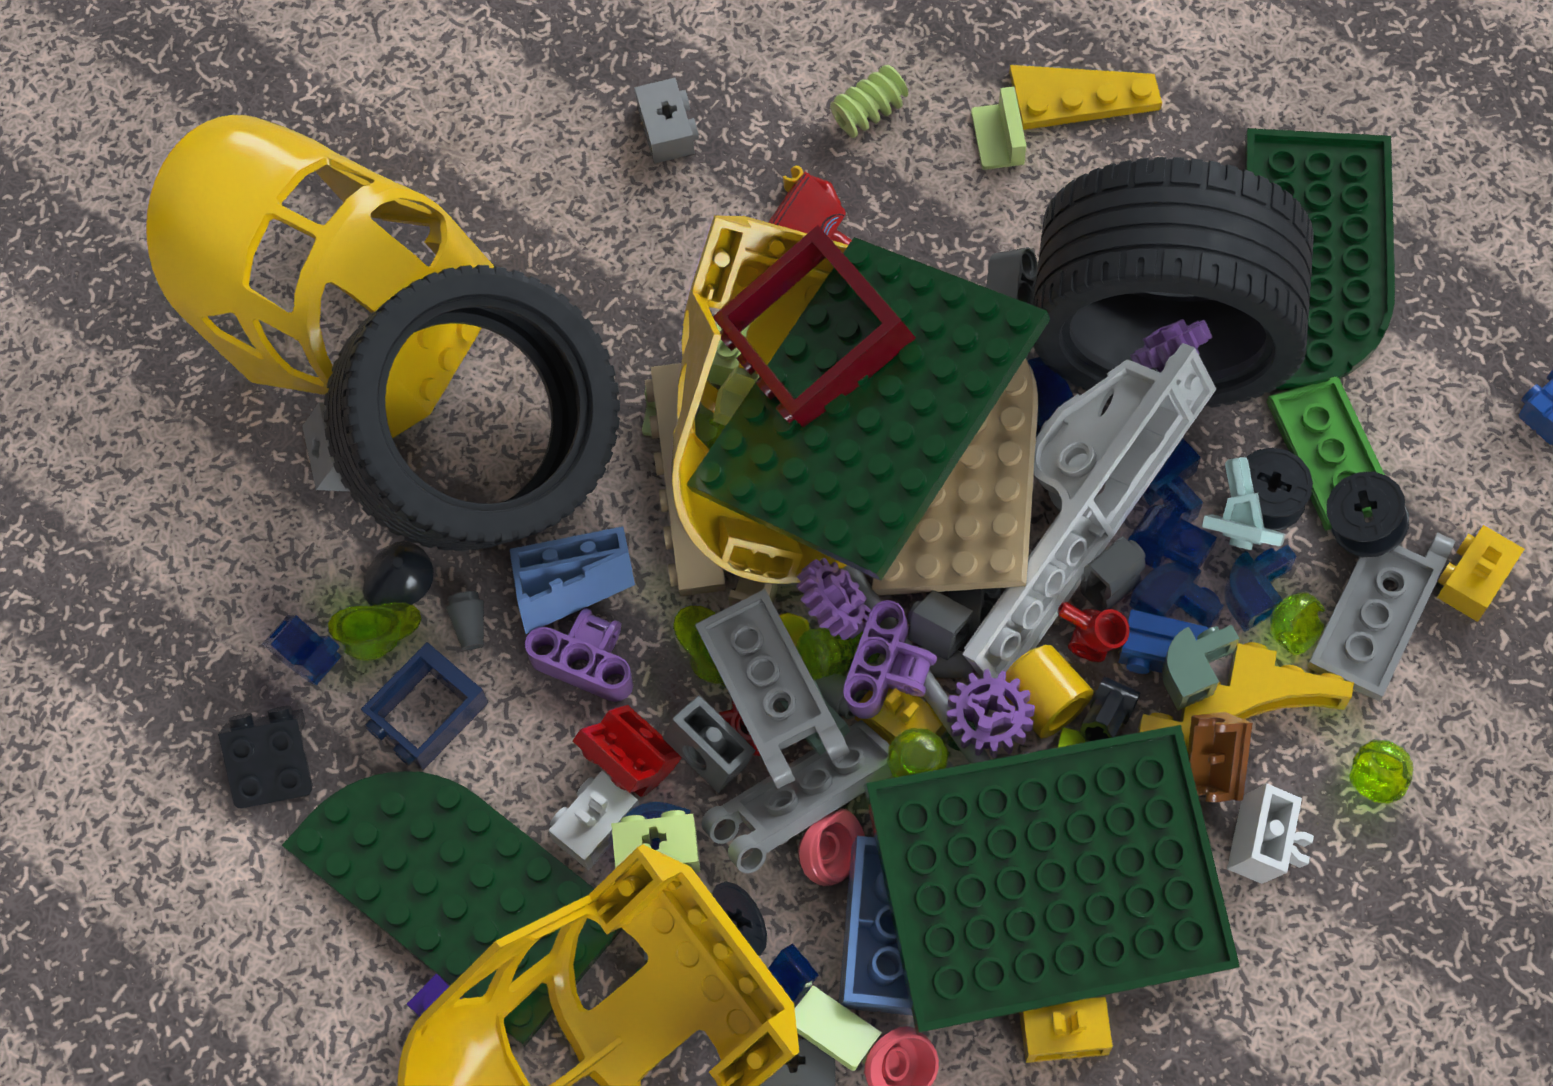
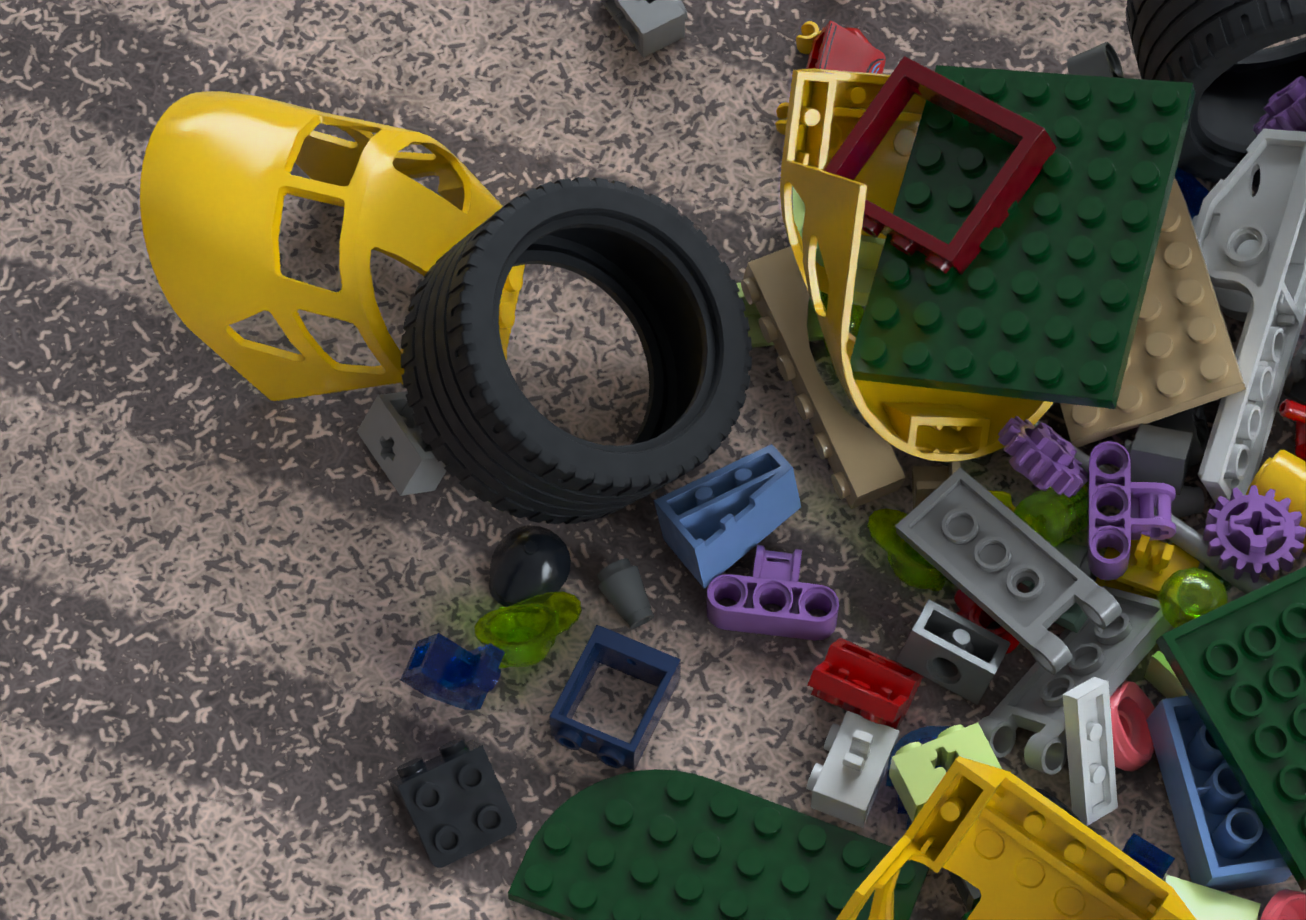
camera: 20 degrees left, 5 degrees down
(783, 862) = (1090, 750): none -> white plate

